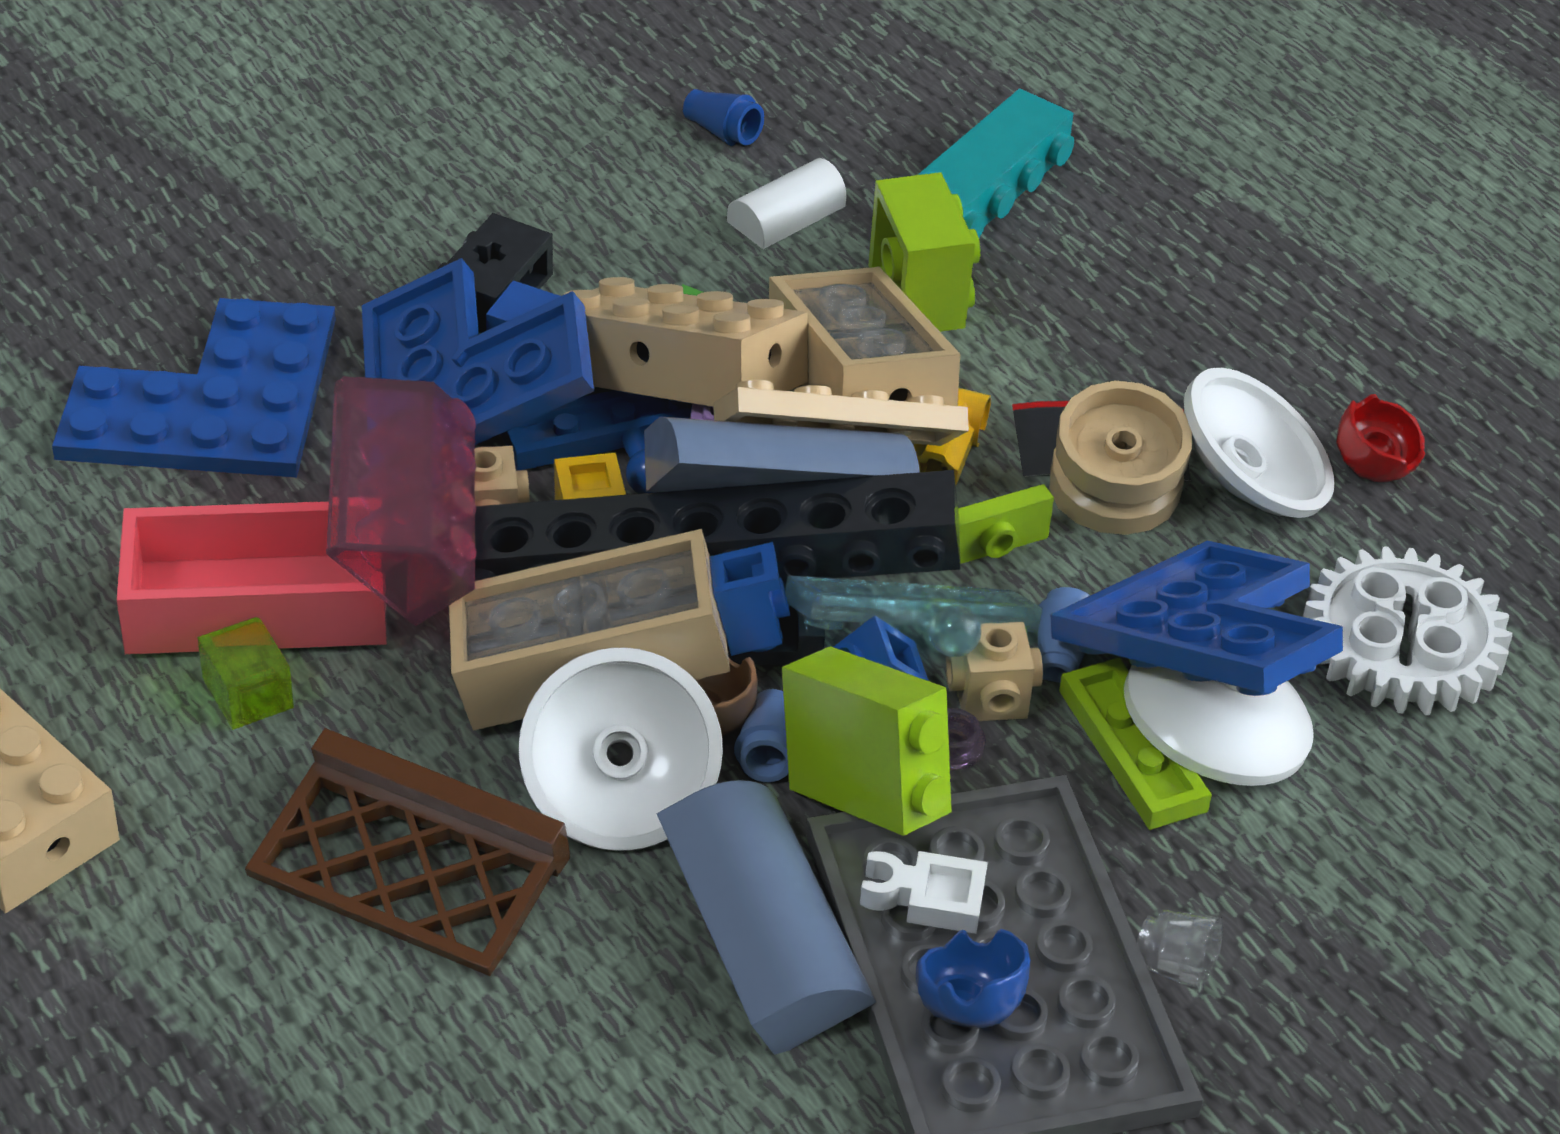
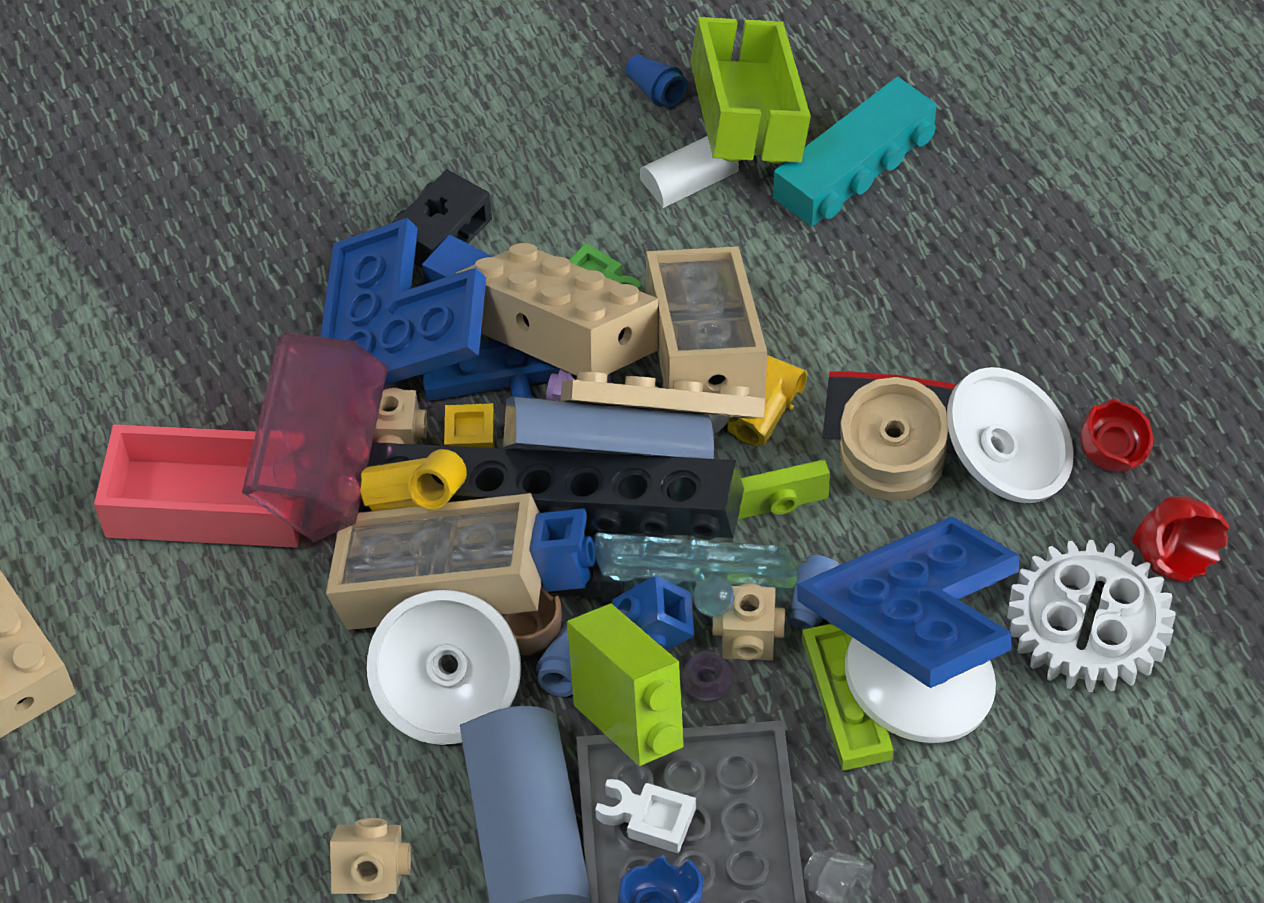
camera: 15 degrees right, 10 degrees up
(236, 415) = (214, 336): blue plate -> none
(245, 672) = (186, 565): clear neon green panel -> none
(447, 812) = (292, 690): reddish brown fence -> none
(536, 535) = (411, 482): none -> yellow piece
(550, 966) = (368, 859): none -> tan brick
(857, 114) = (752, 102): none -> lime piece
(925, 246) = (779, 234): lime brick -> none
(1491, 533) = (1181, 538): none -> red hair

